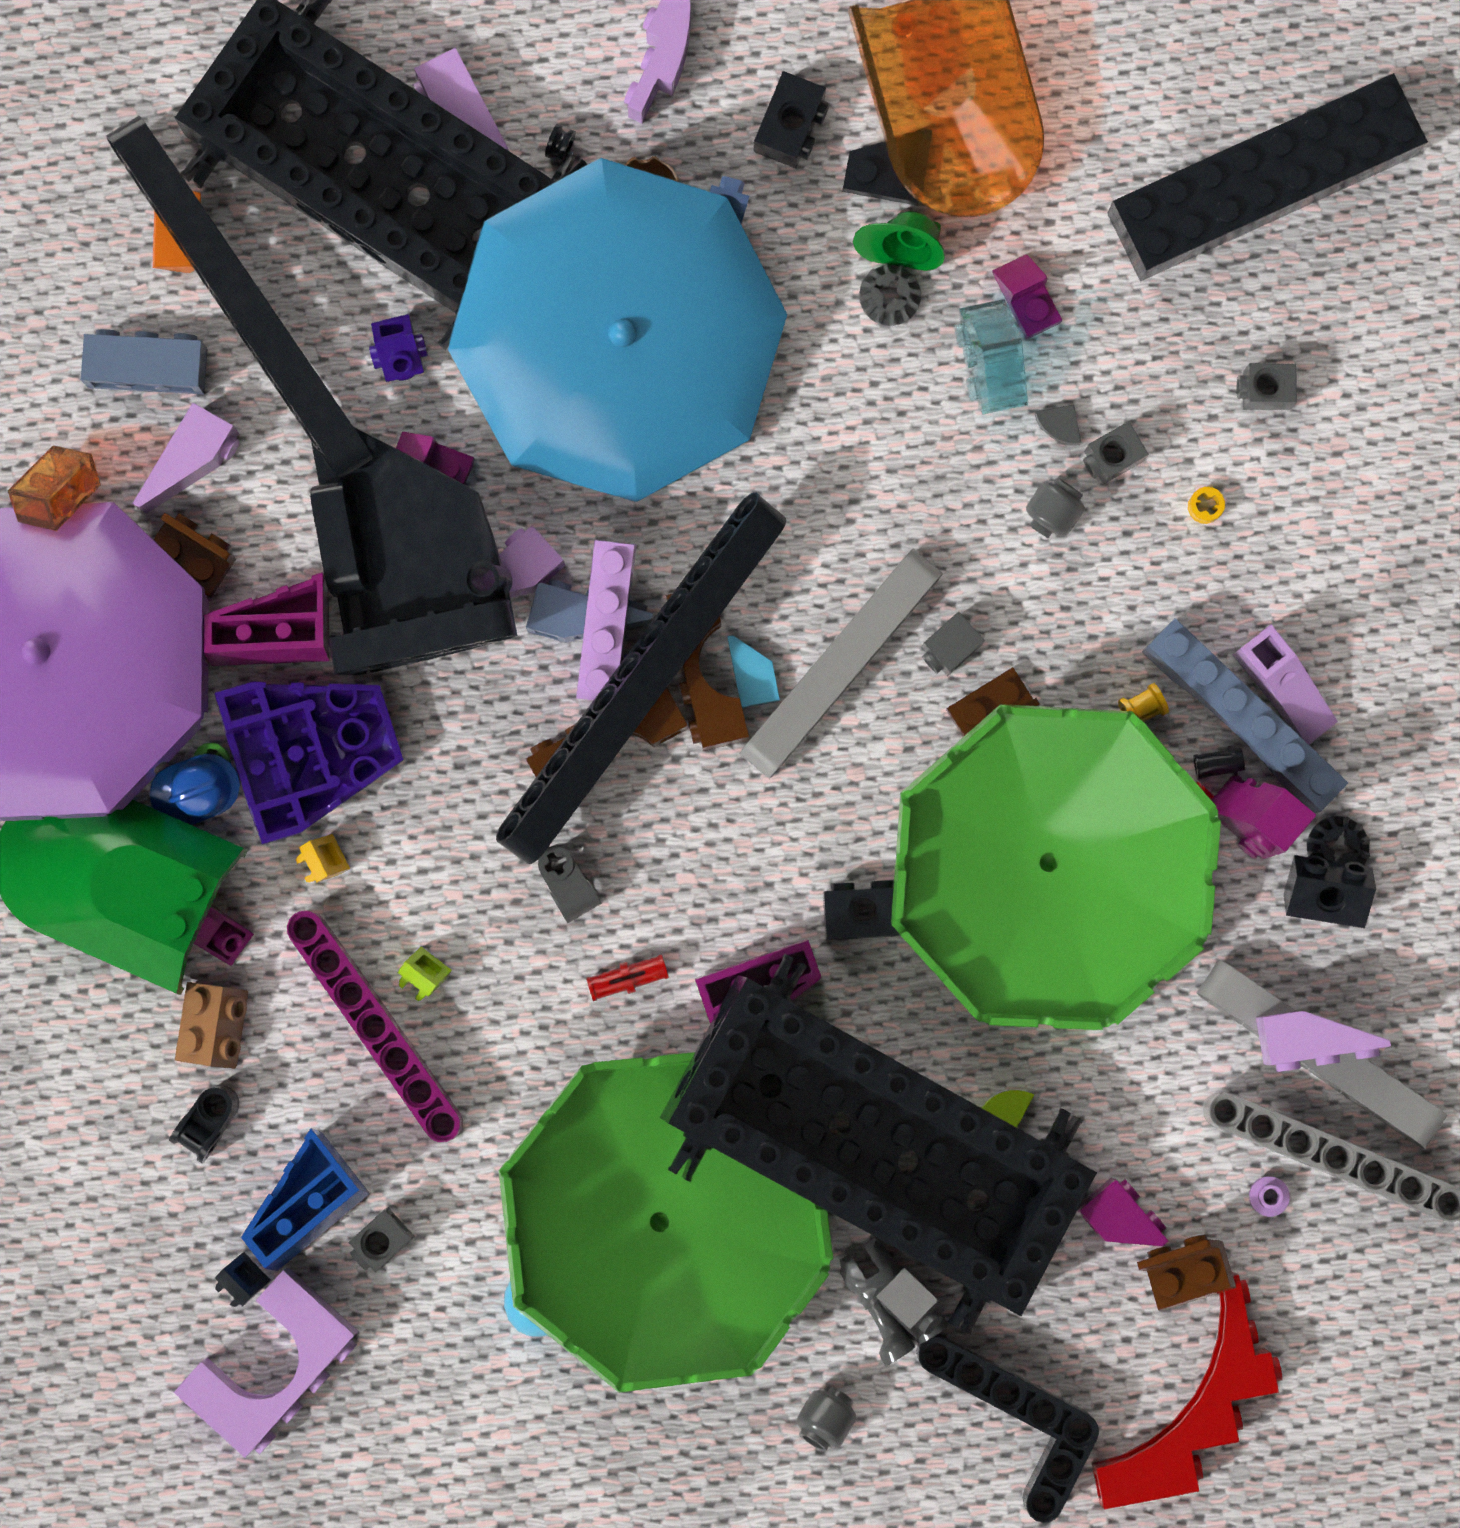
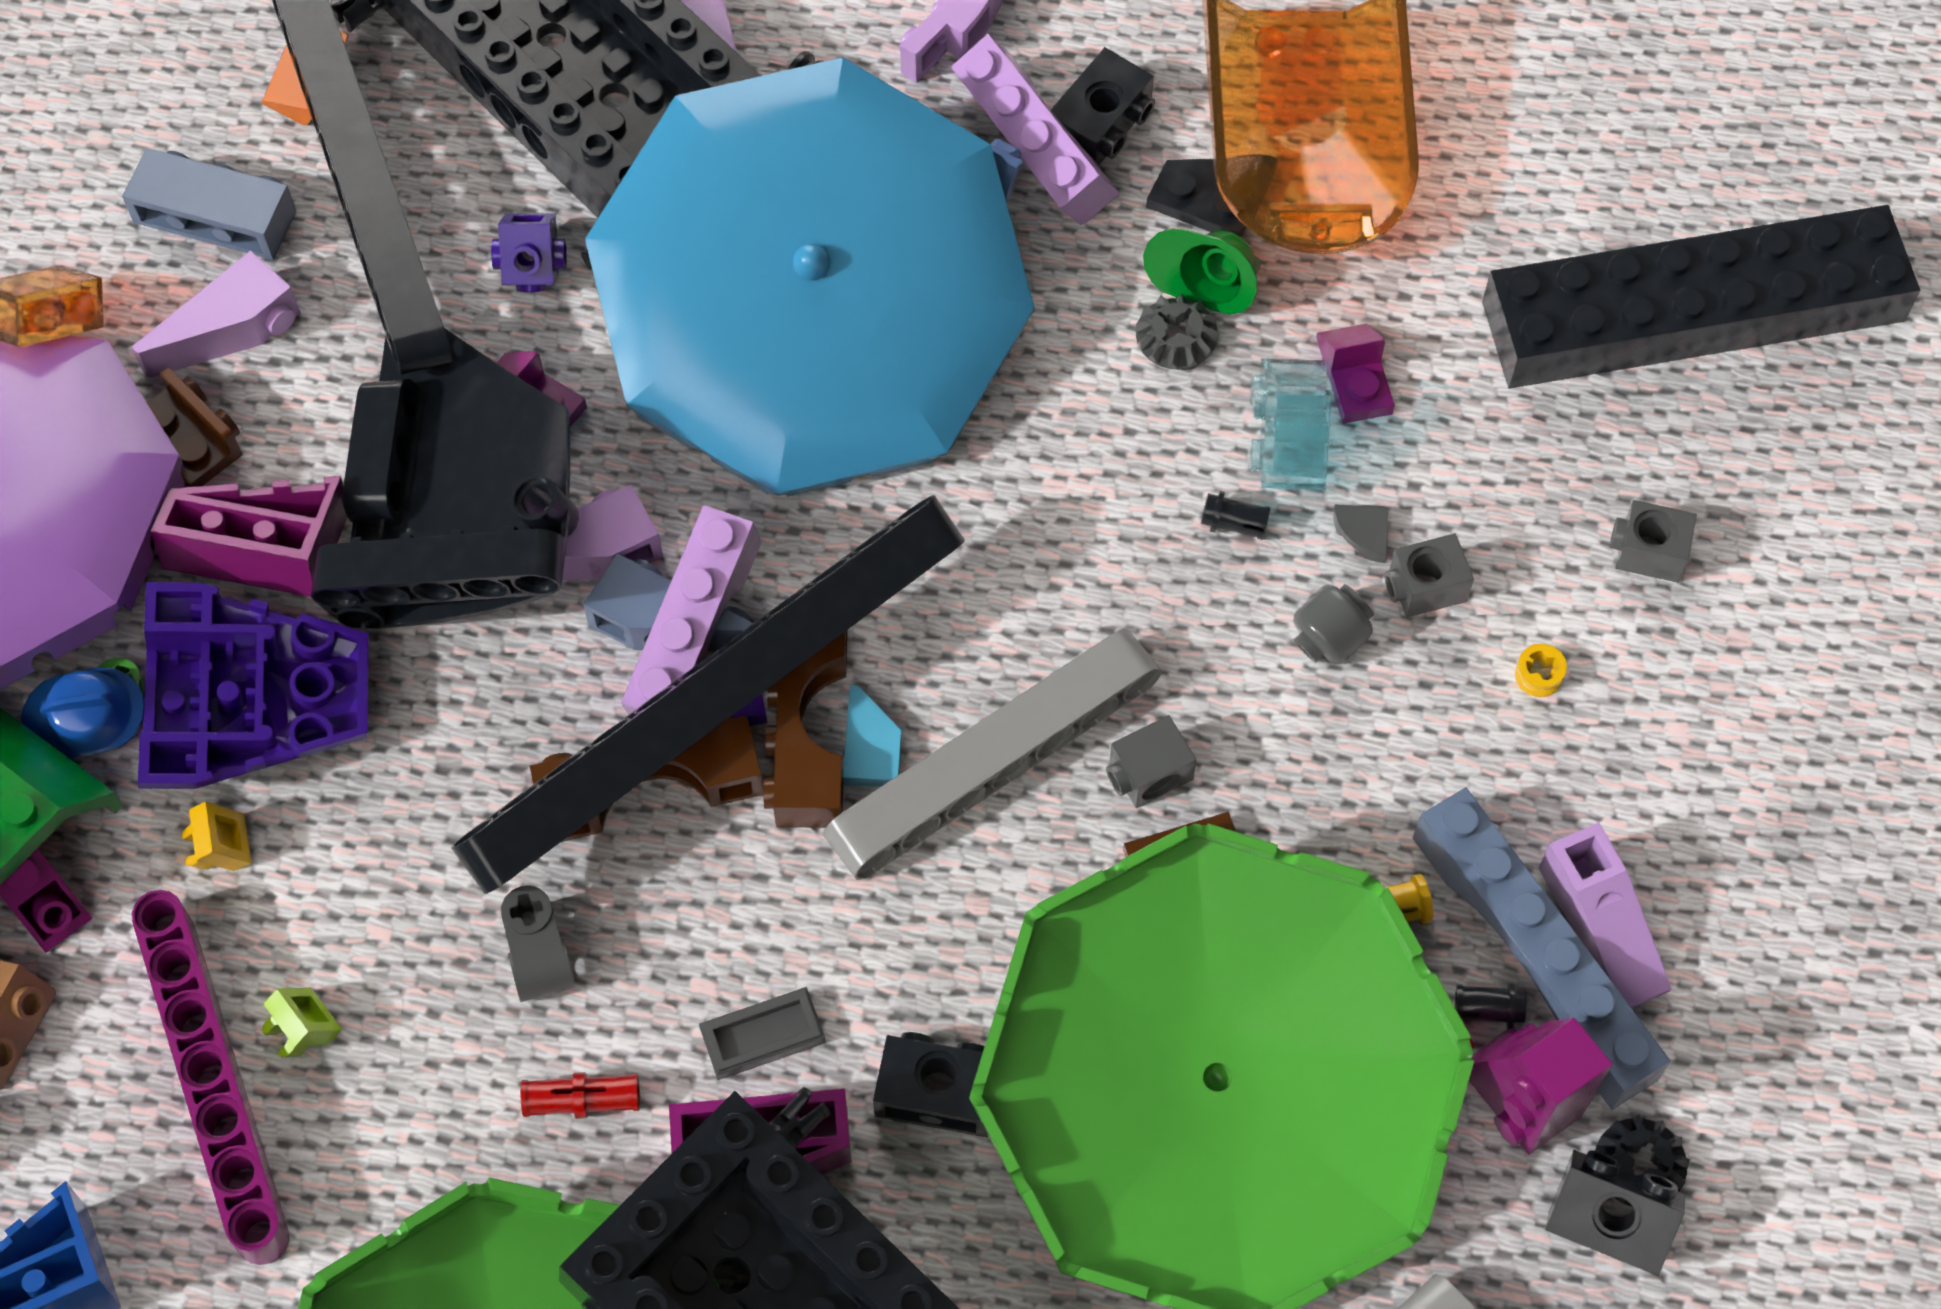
camera: 15 degrees right, 20 degrees down
(735, 902) = (762, 1033): none -> dark grey tile
(765, 174) = (1029, 125): none -> lavender arch
(966, 437) = (1235, 515): none -> black pin

